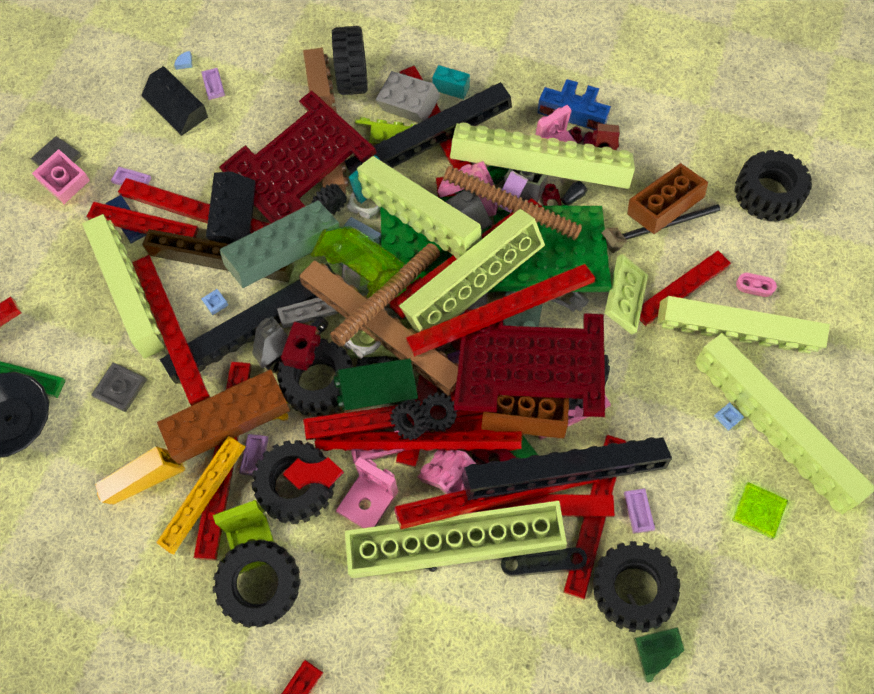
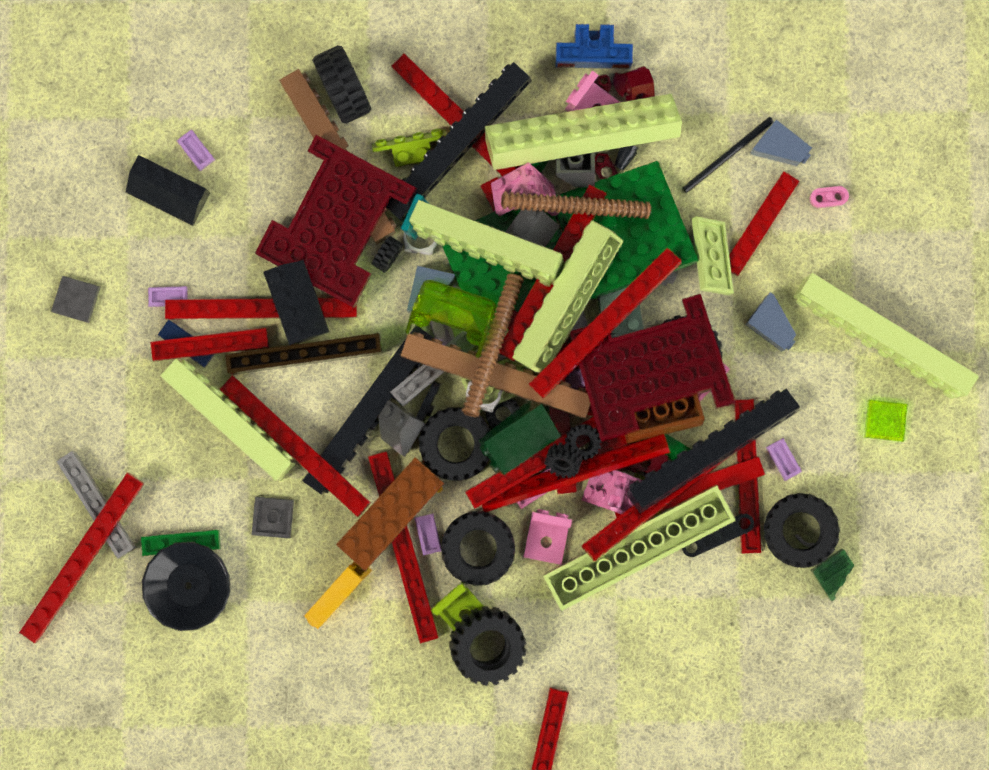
camera: 25 degrees left, 20 degrees up
(61, 176) = (100, 325): bright pink brick -> none
(184, 61) = (149, 132): light blue tile -> none
(200, 495) = (401, 588): yellow tile -> none
(214, 302) = (322, 401): light blue plate -> none
(277, 244) = (367, 326): sand green brick -> none
(300, 335) = (433, 415): dark red brick -> none
(304, 473) = (488, 542): red tile -> none
(408, 97) = (417, 103): light grey brick -> none
(451, 82) = (453, 63): teal brick -> none
(515, 184) = (568, 182): lavender tile -> none
(614, 239) = (682, 196): dark tan bracket -> none
(666, 376) = (772, 324): none -> sand blue slope
(667, 198) = (720, 133): dark orange brick -> none
(722, 229) = (782, 146): none -> sand blue slope
(729, 416) = (837, 341): light blue tile -> none
(743, 324) = (827, 252): yellowish green brick -> none
(781, 168) = (835, 63): black tyre -> none

